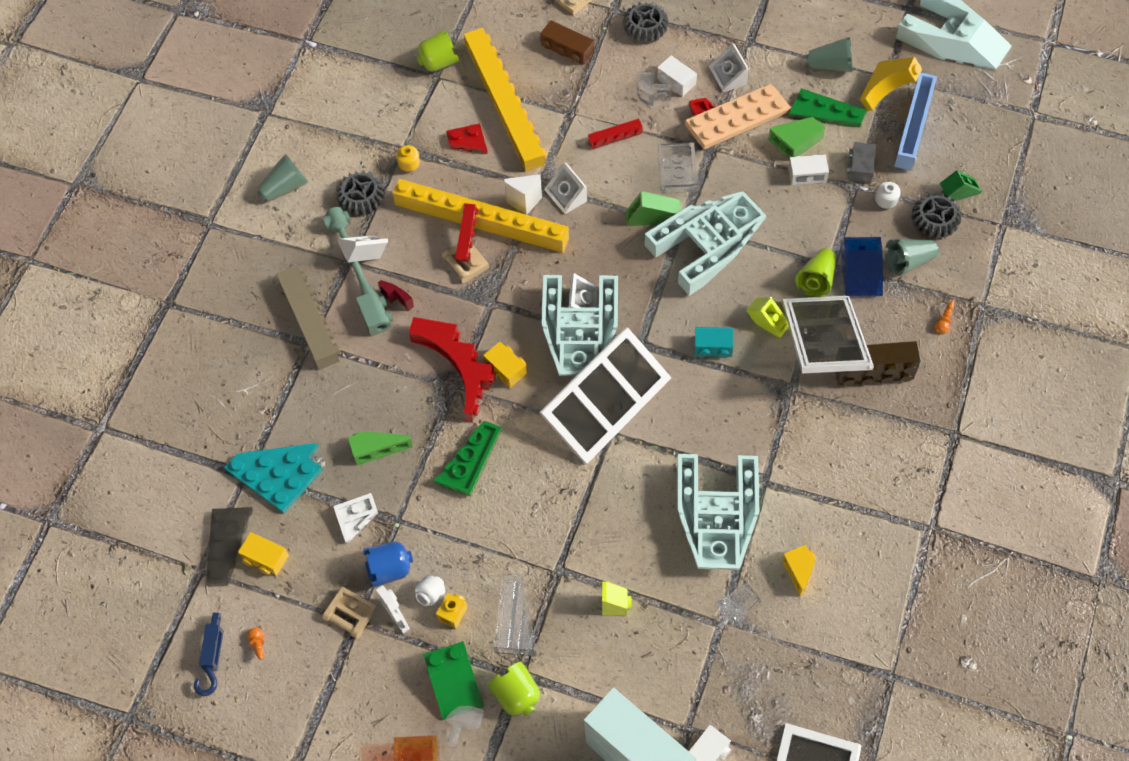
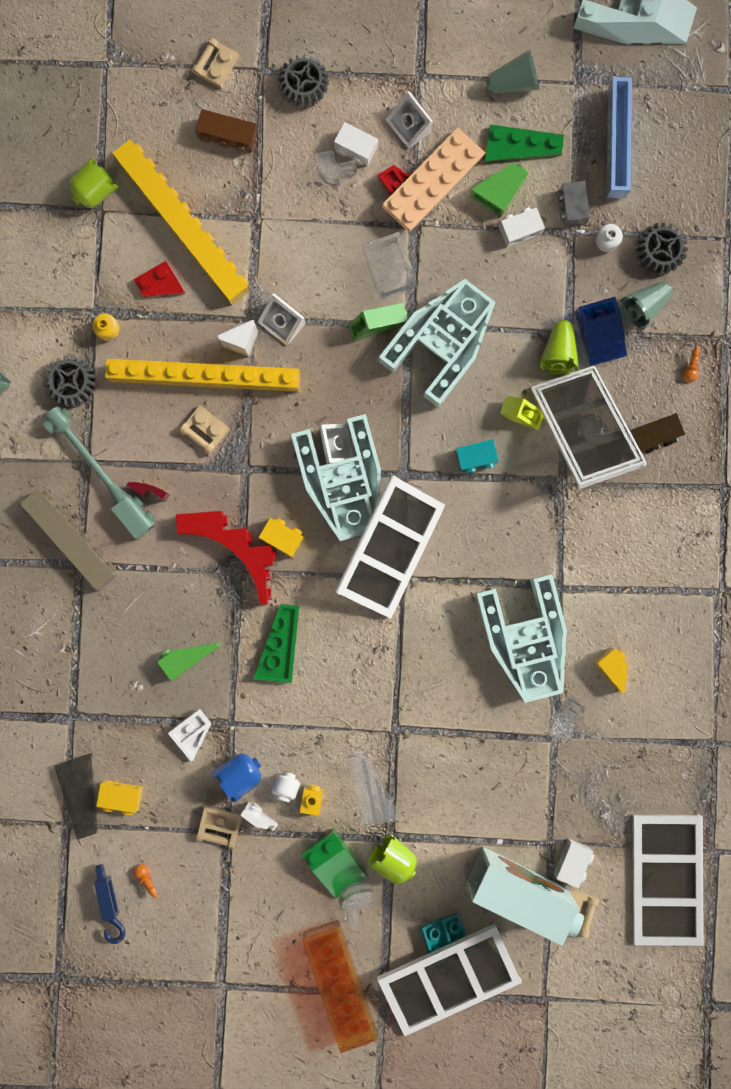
camera: 25 degrees left, 25 degrees up
(277, 473) = (100, 711): teal wing -> none
(362, 247) = (95, 446): white slope -> none
(466, 232) = (198, 405): red piece -> none
(615, 133) = (311, 234): red piece -> none
(615, 600) = (457, 750): neon yellow slope -> none
(887, 77) = (578, 89): yellow arch -> none
(960, 186) = (678, 206): green slope -> none

